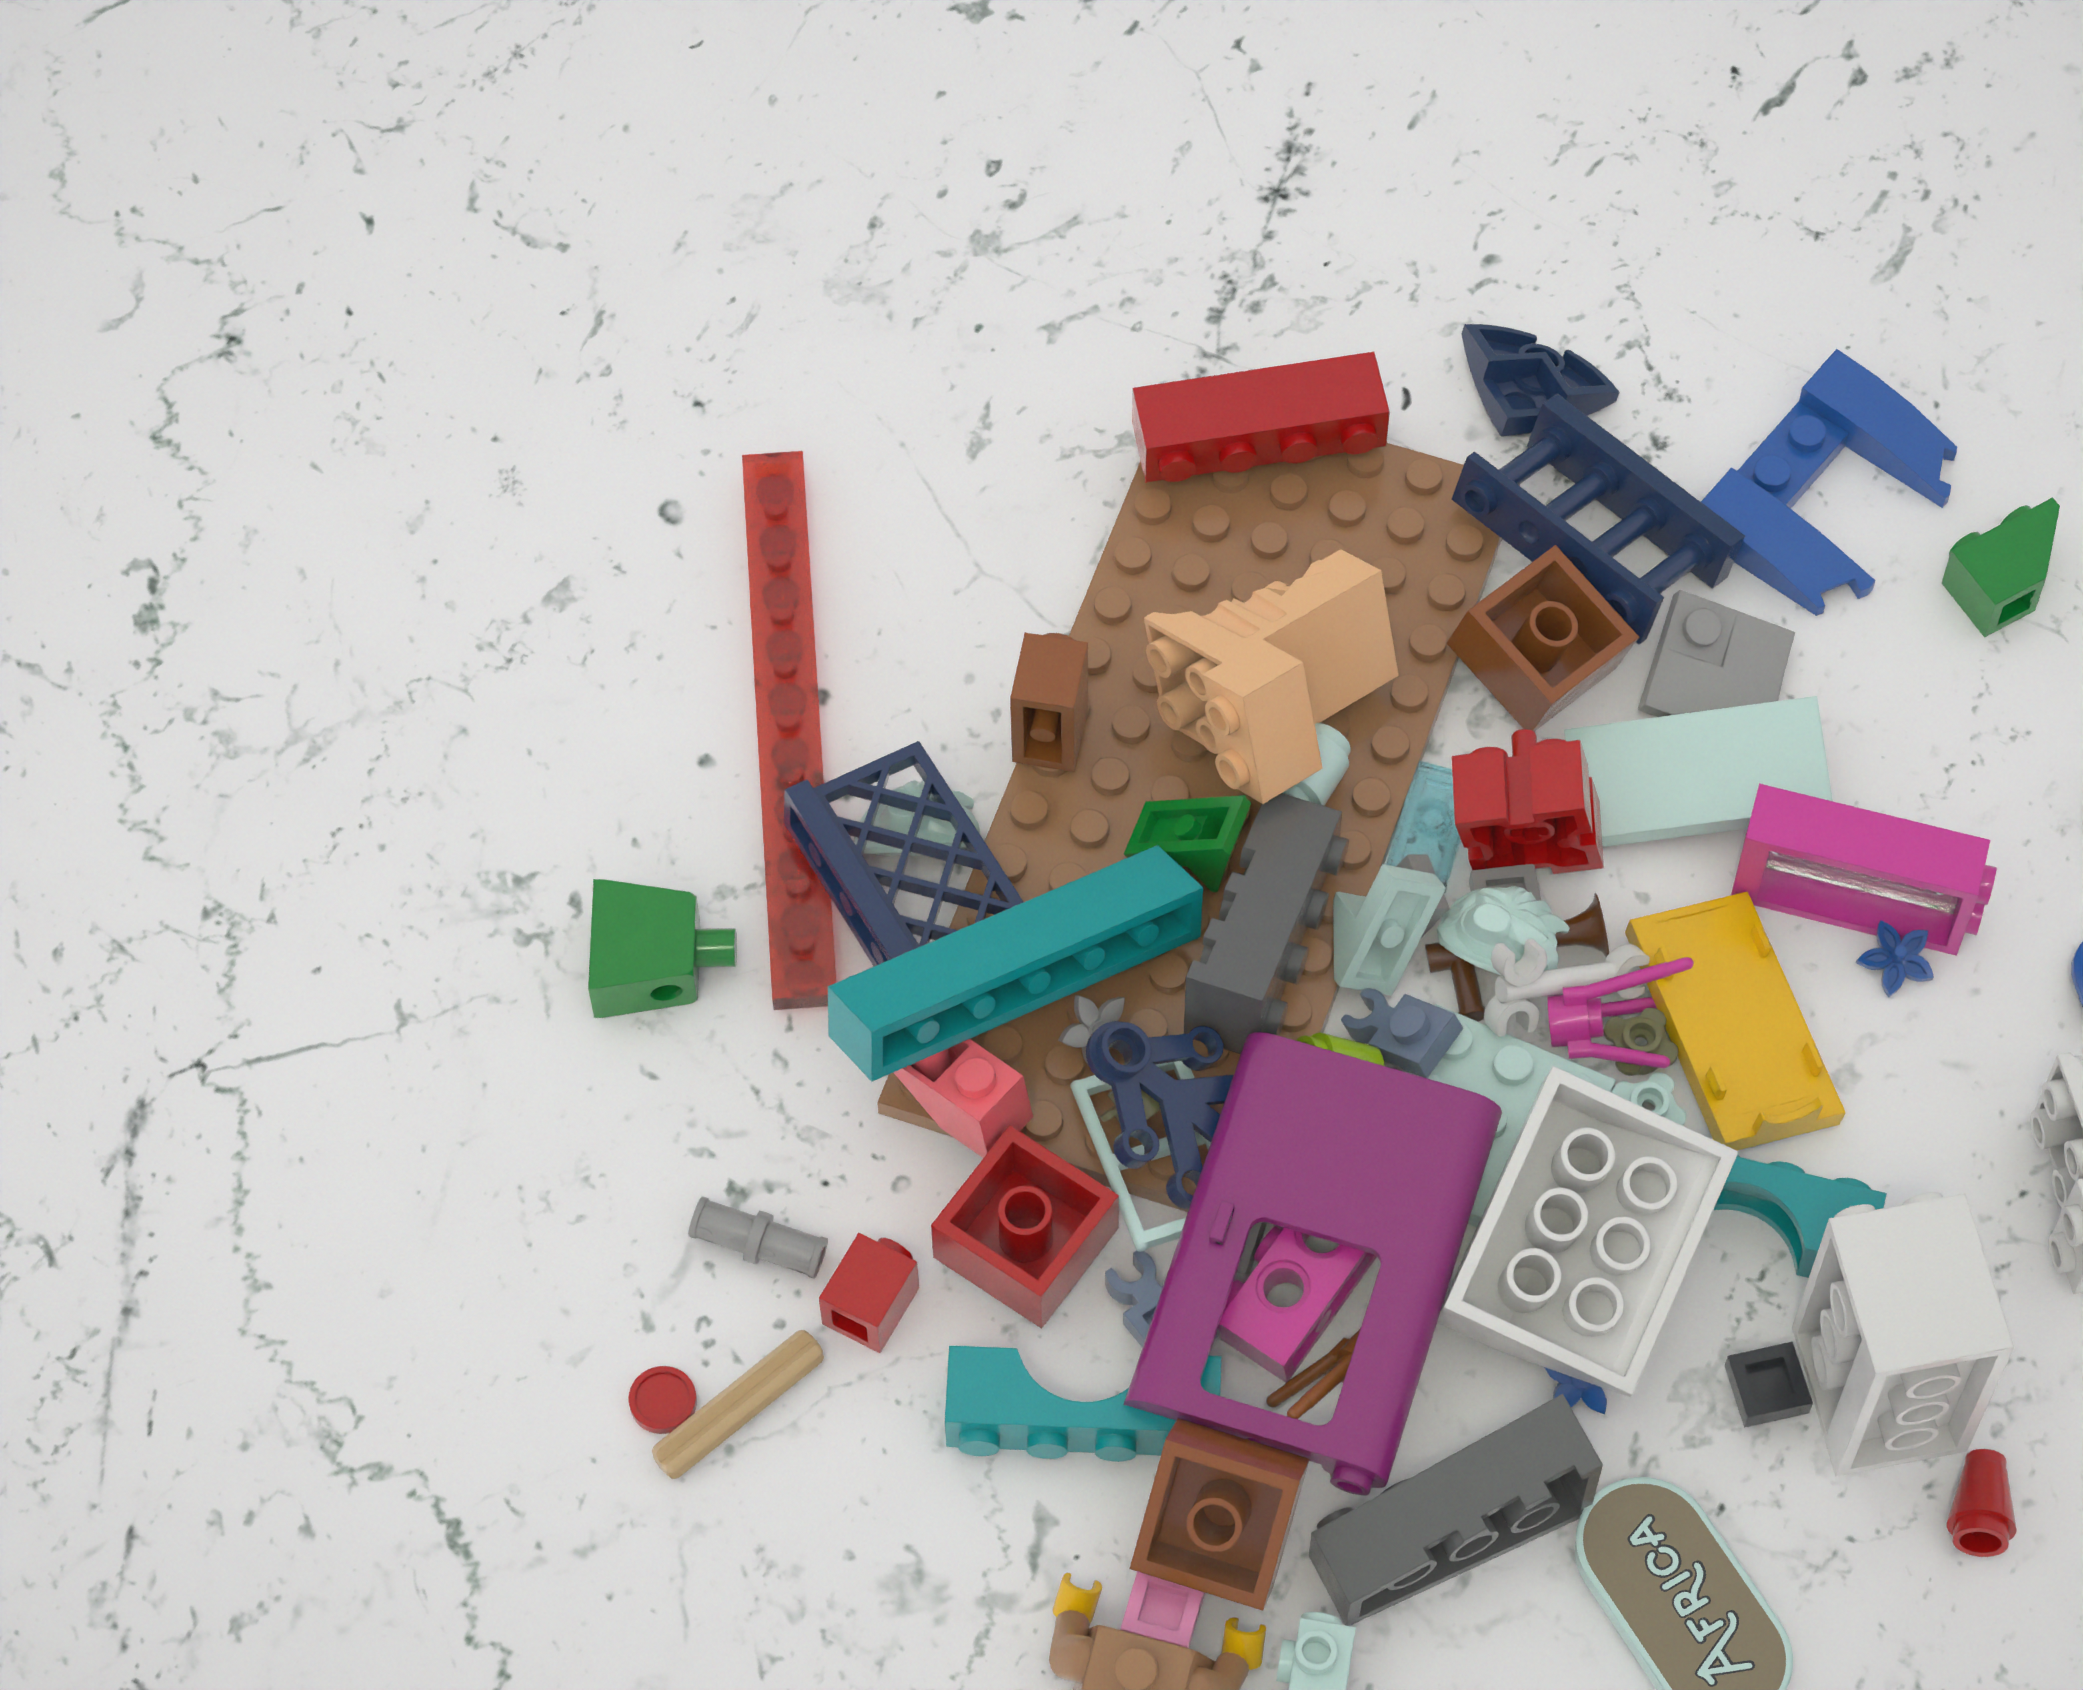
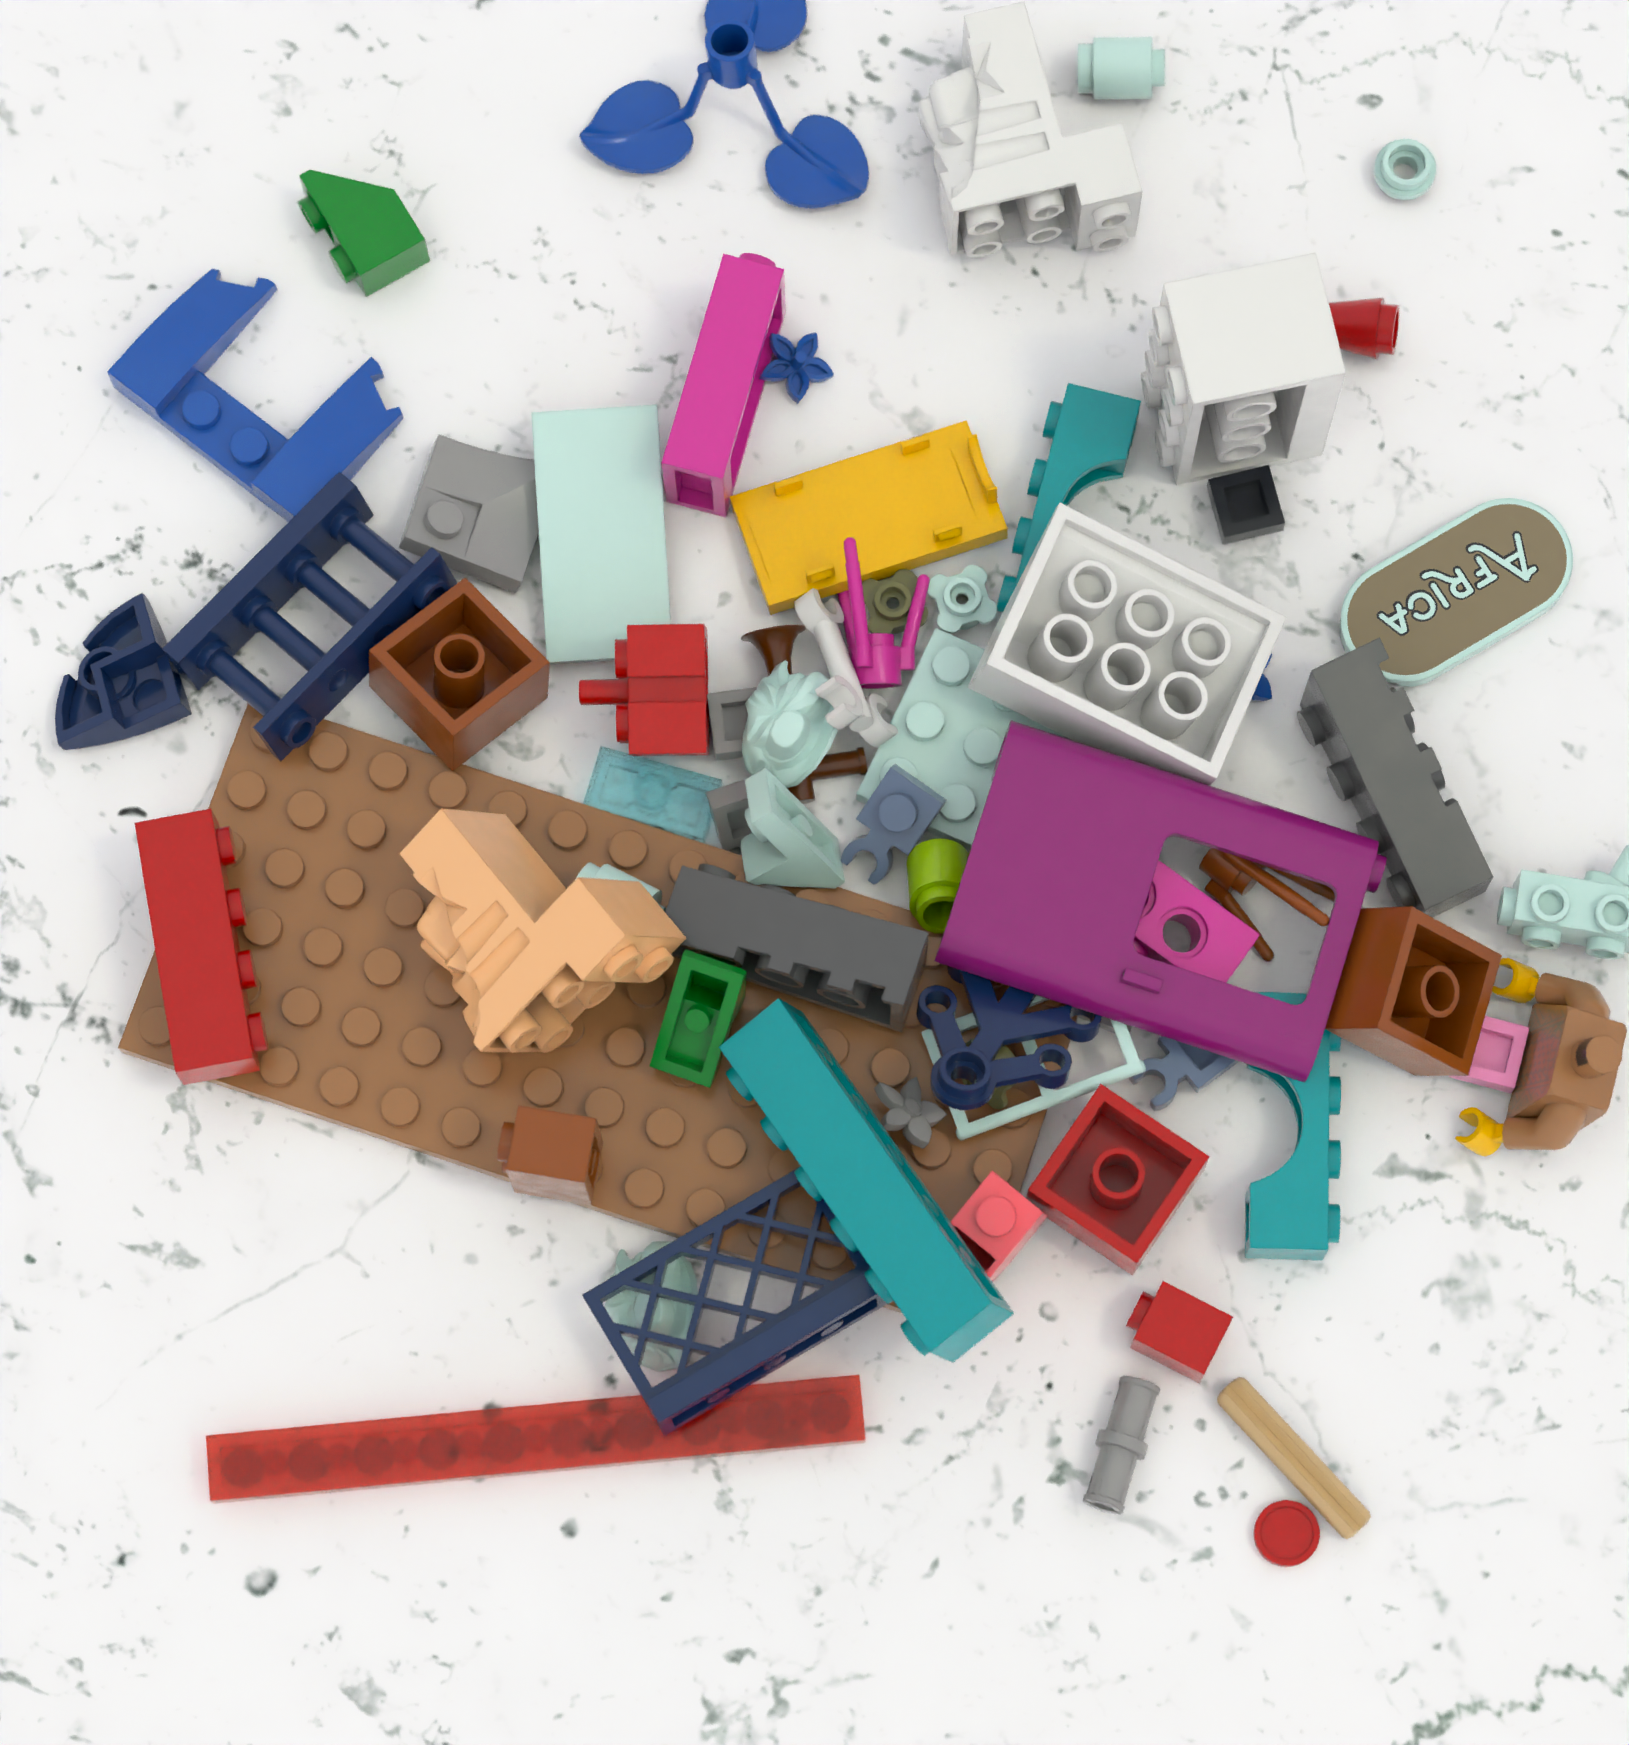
camera: 90 degrees left, 15 degrees up
(649, 948) = (805, 1567): green torso -> none

